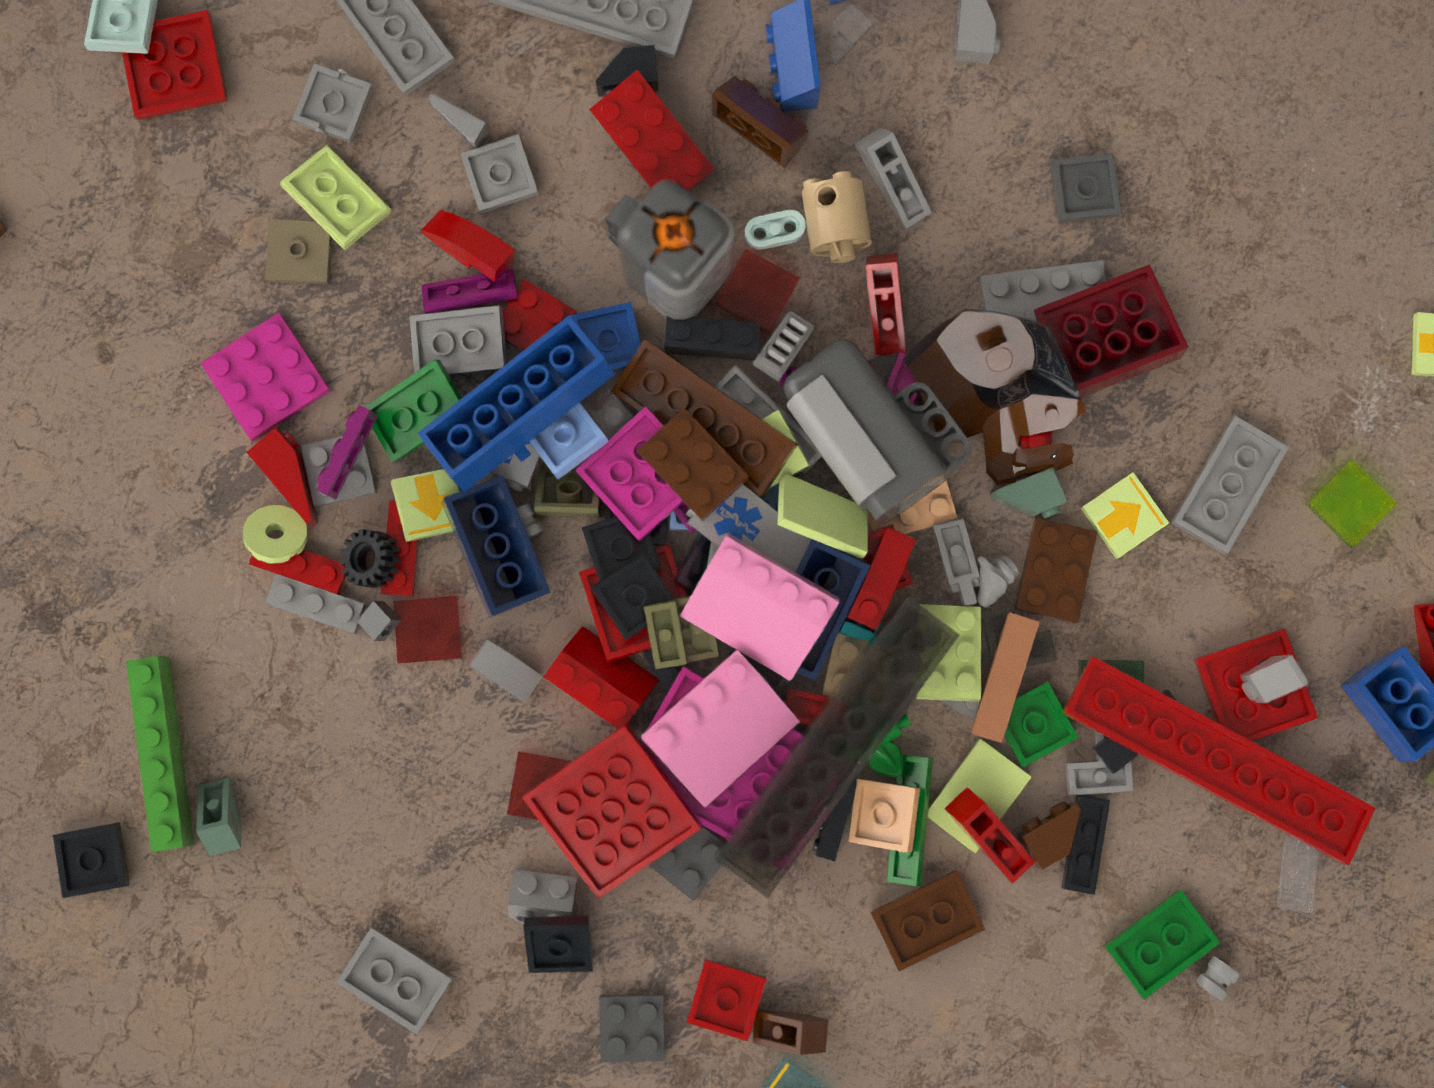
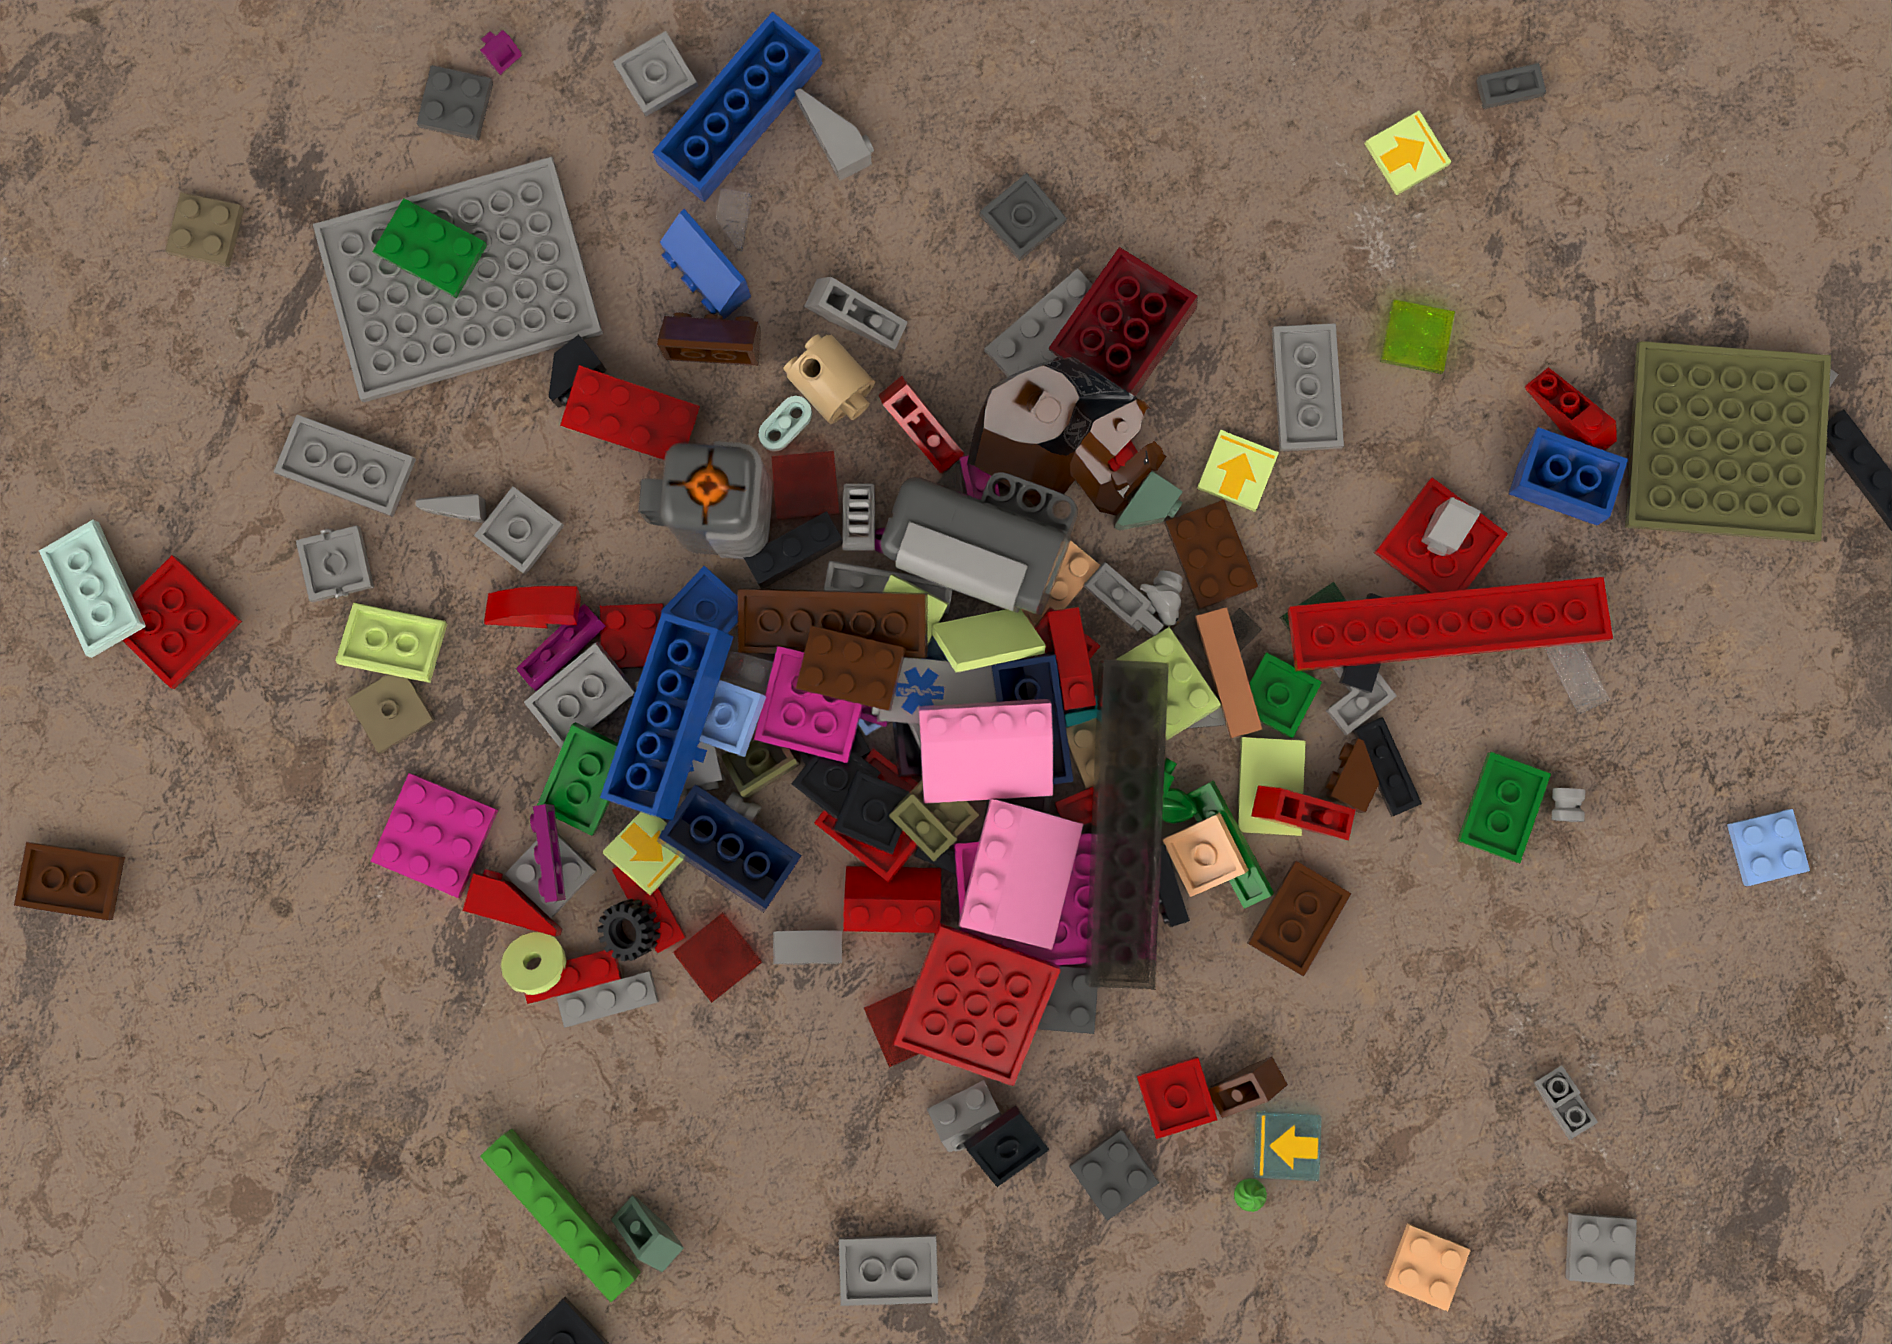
camera: 30 degrees left, 0 degrees up
(379, 620) = (671, 977): piece -> none

